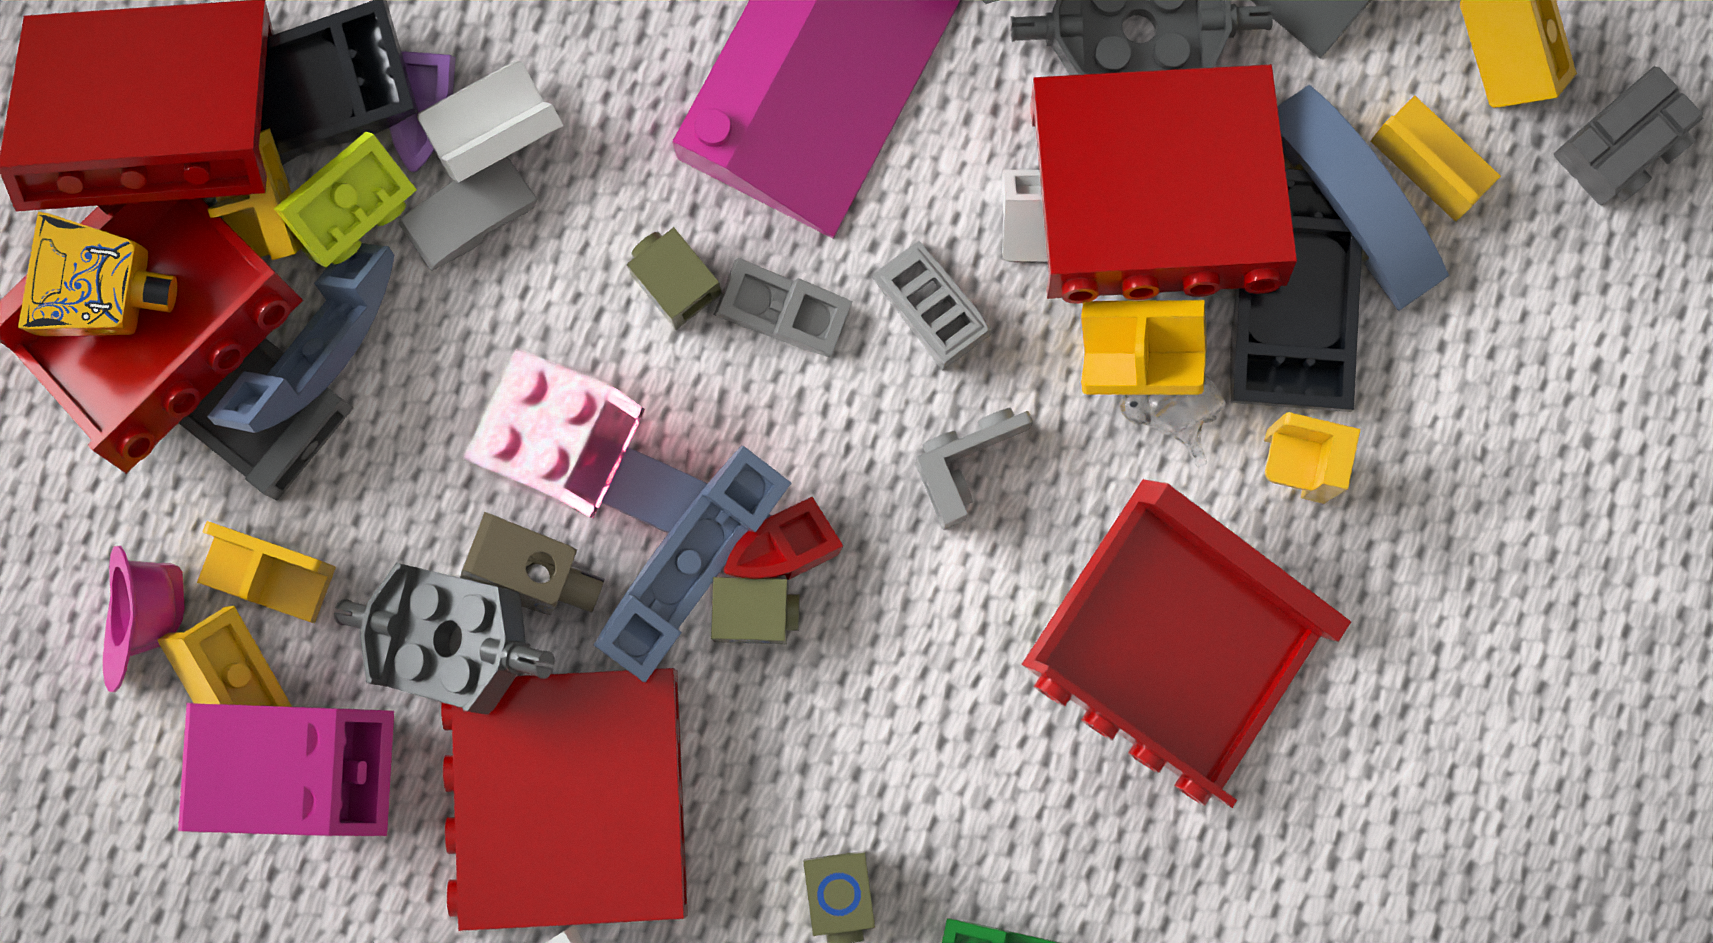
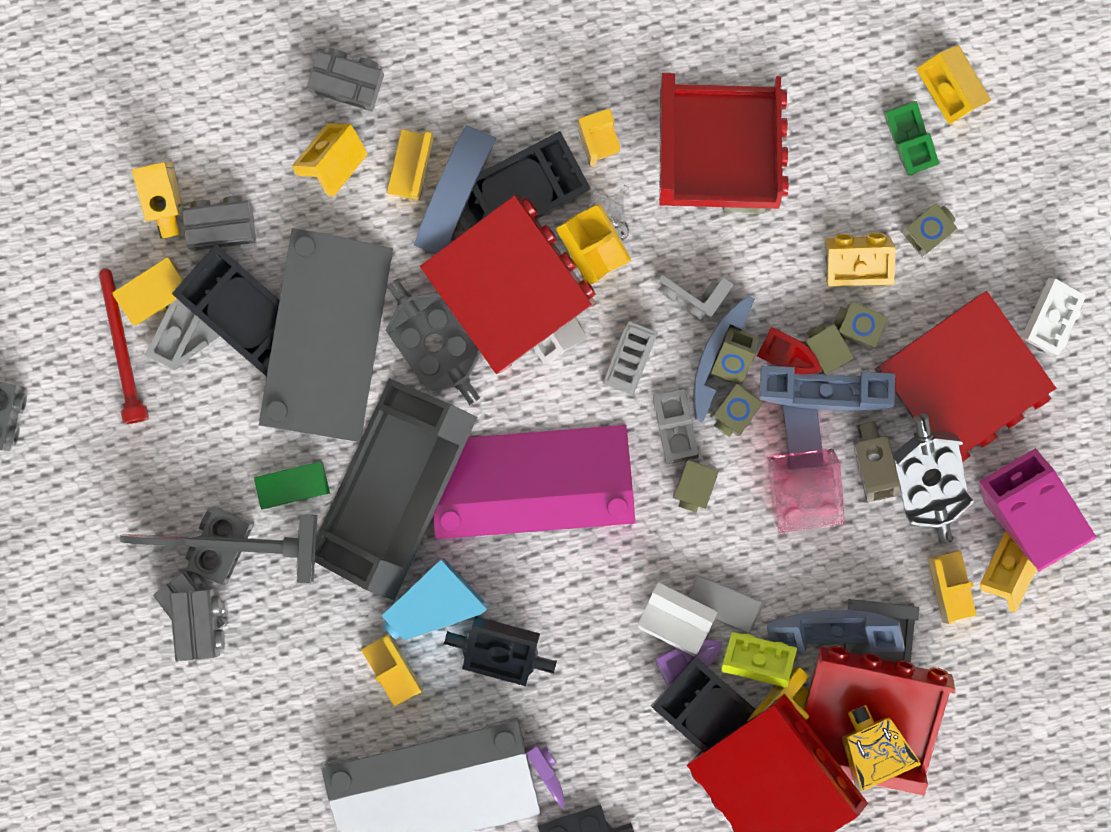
camera: 120 degrees left, 5 degrees up
(141, 609) = (1009, 631): dark pink piece -> none
(747, 408) = (736, 411): none -> olive brick
(758, 685) = (860, 325): none -> olive brick
(804, 376) = (702, 394): none -> sand blue slope
(833, 459) = (735, 355): none -> olive brick
(860, 753) = (860, 260): none -> yellow bracket

